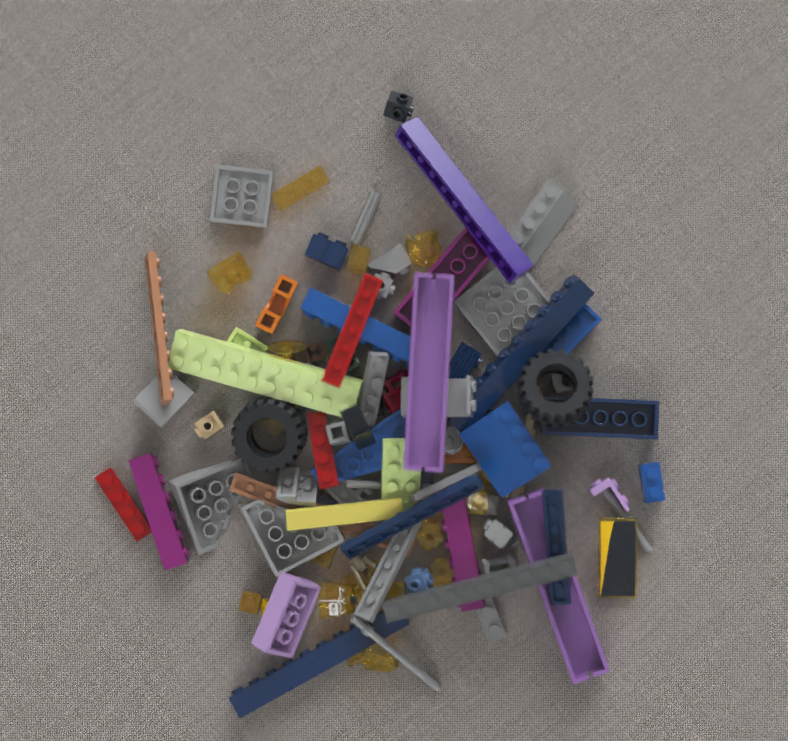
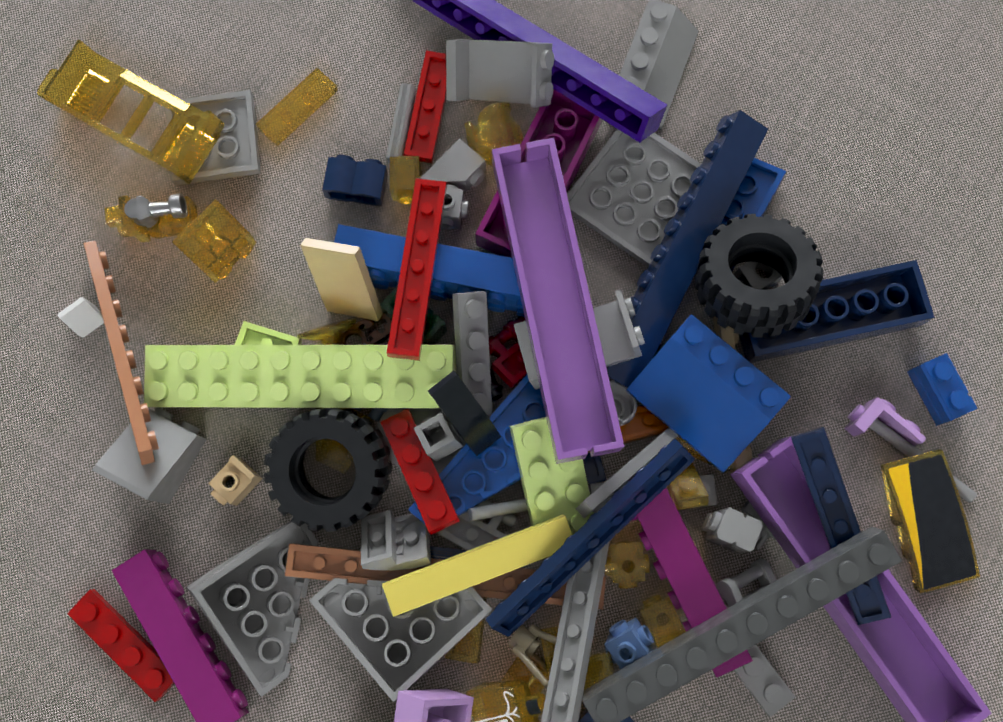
camera: 10 degrees left, 10 degrees down
(135, 297) = (81, 317): none -> white slope
(169, 142) = (90, 83): none -> clear yellow piece
(192, 245) = (156, 219): none -> hips
(277, 304) = (293, 292): orange arch -> none
(304, 321) = (342, 278): none -> tan tile
(386, 212) = (428, 108): none -> red plate
(436, 207) = (499, 71): none -> light grey panel
(463, 362) = (604, 278): dark blue brick -> none

